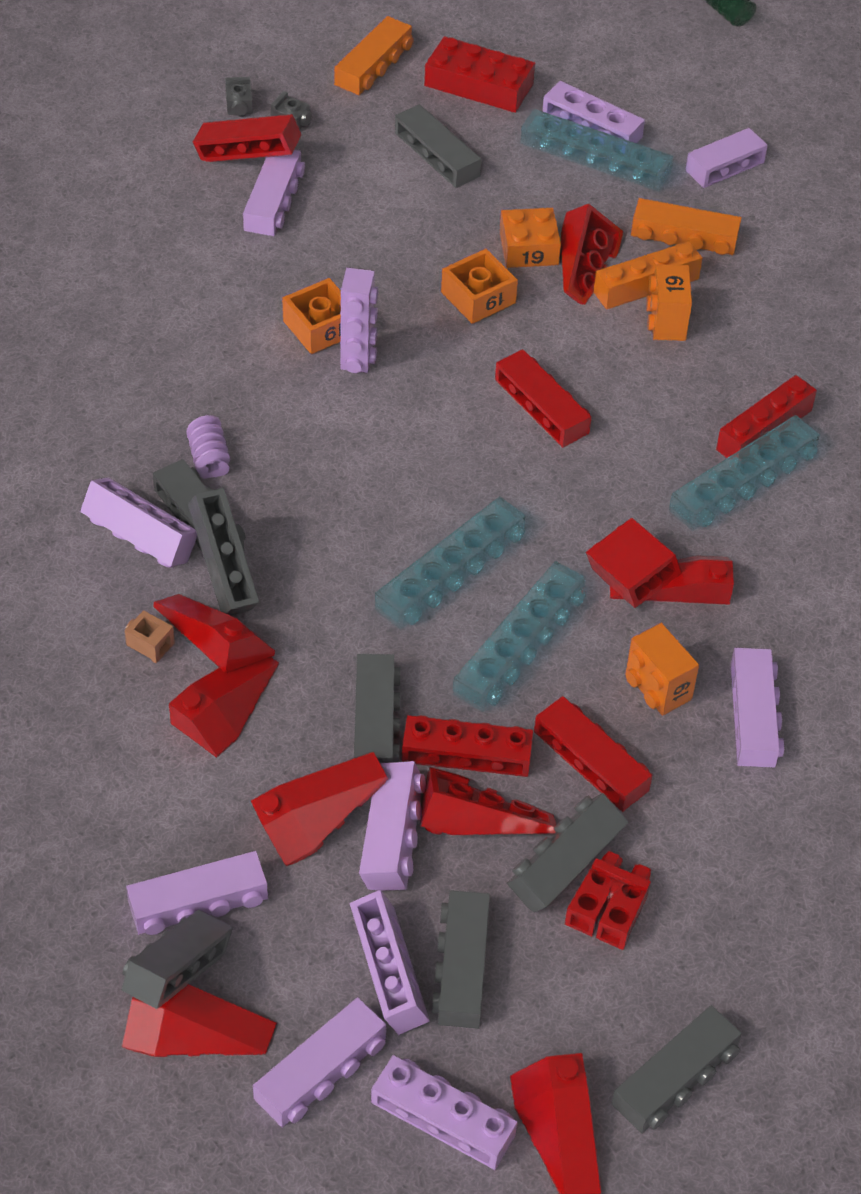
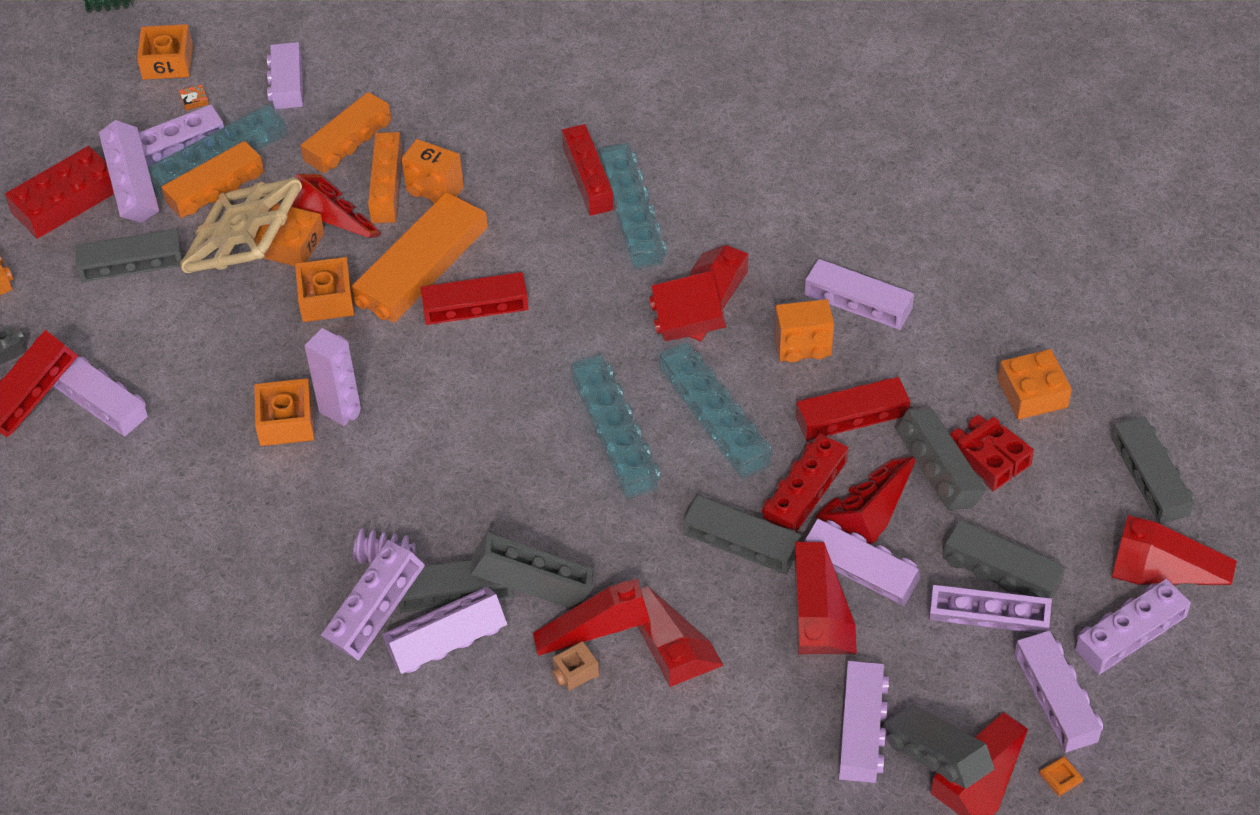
camera: 60 degrees left, 0 degrees up
(138, 454) = (373, 600): none -> lavender brick
(219, 1102) = (1061, 776): none -> orange tile
(510, 196) = (240, 225): none -> tan plate
(520, 98) = (128, 171): none -> lavender brick
(563, 161) = (212, 178): none -> orange brick
(568, 338) = (419, 257): none -> orange brick
(656, 111) = (193, 97): none -> tile
(689, 65) = (165, 51): none -> orange brick
(728, 911) = (1034, 384): none -> orange brick

